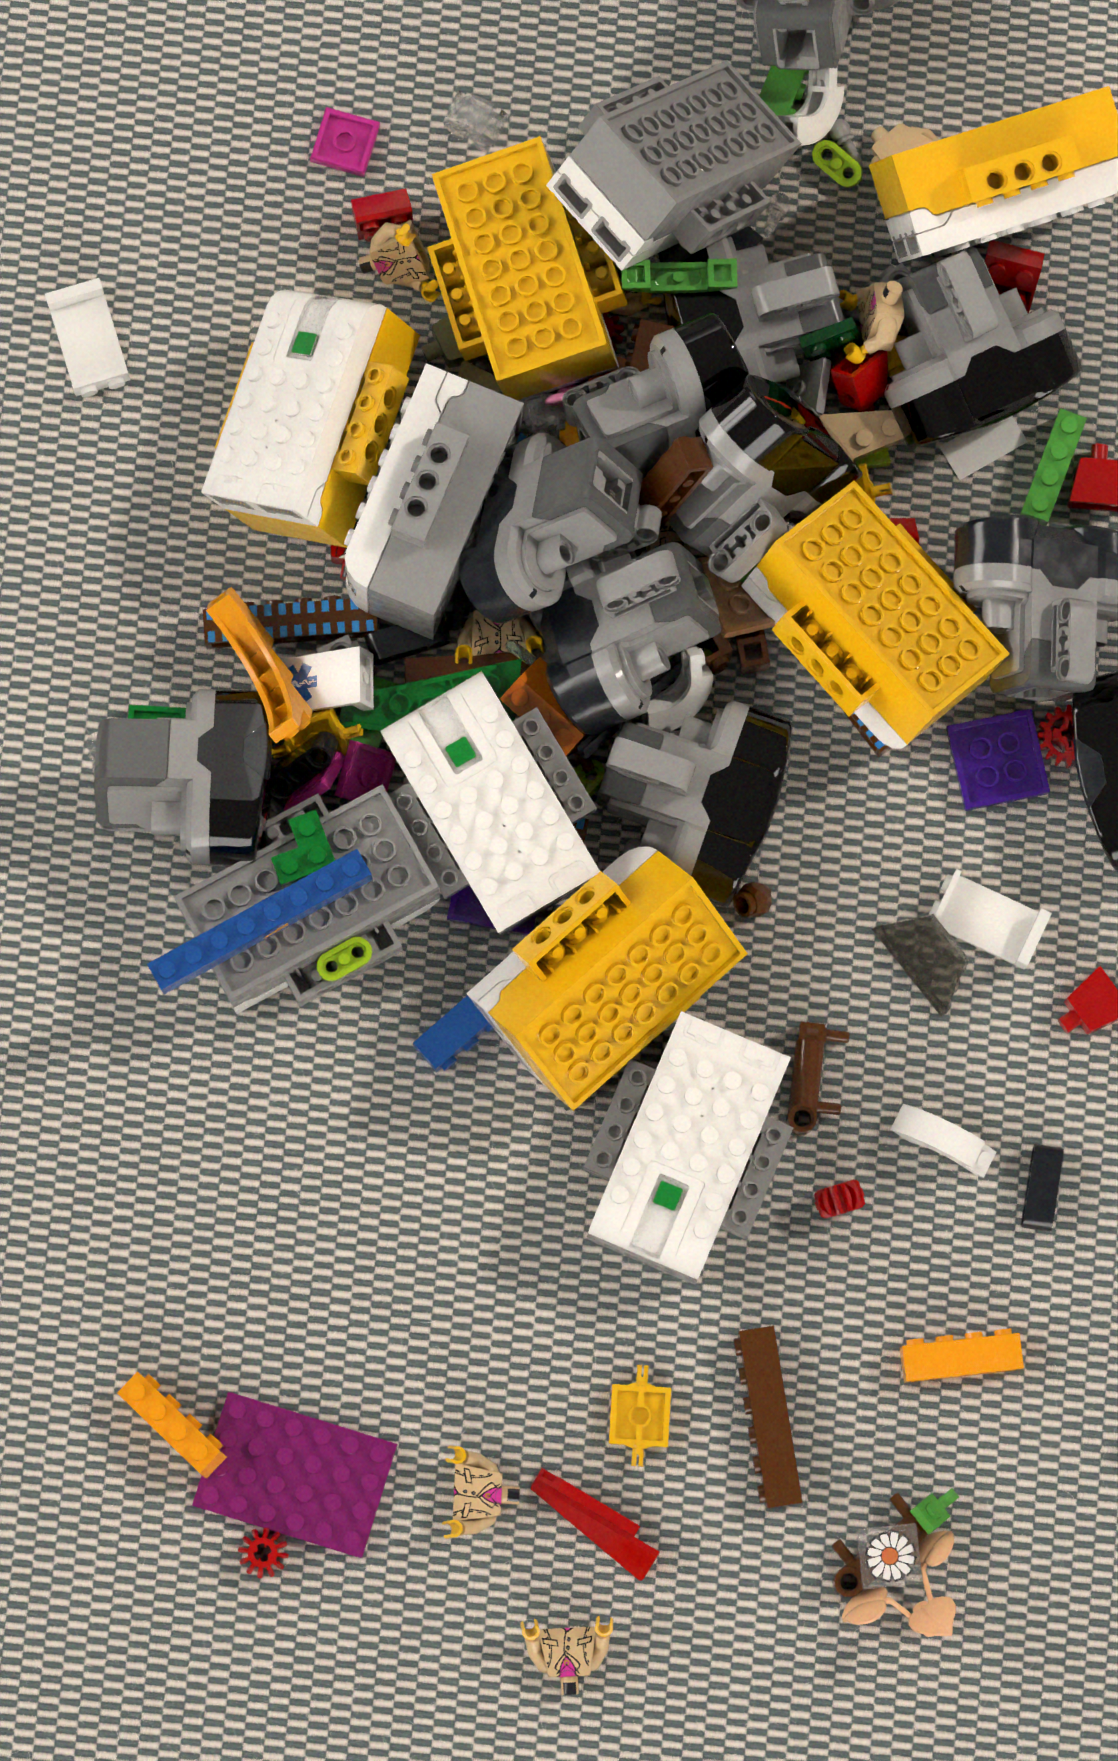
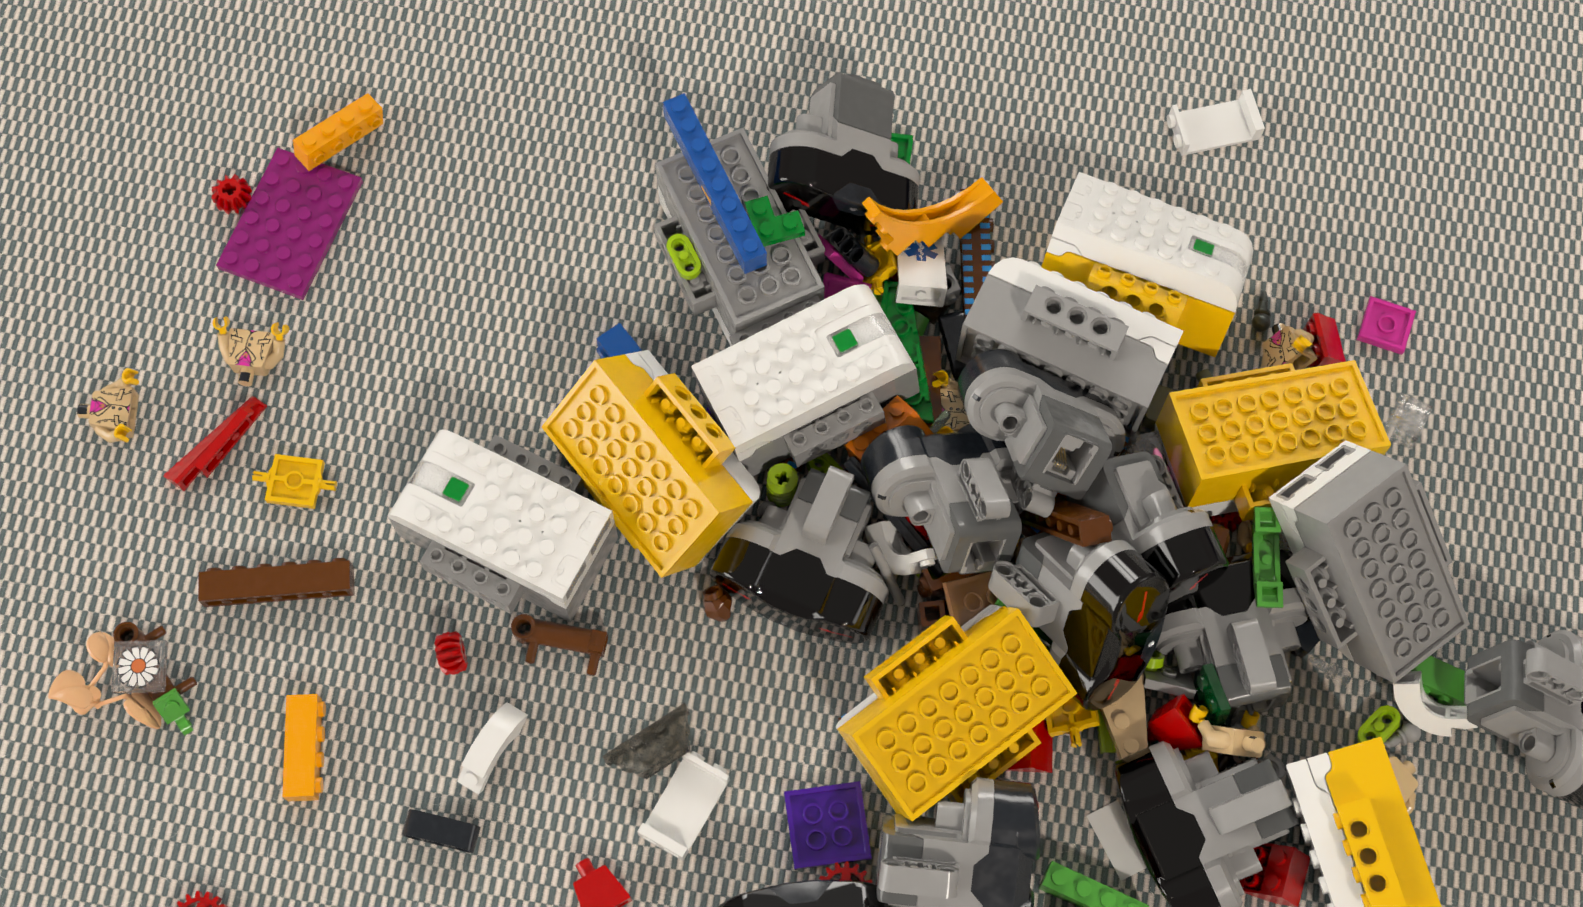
camera: 95 degrees right, 10 degrees down
(351, 285) = (1261, 320): none -> pearl dark grey bar
(608, 821) = (781, 484): none -> lime piece
(708, 705) = (887, 574): none -> light grey bar

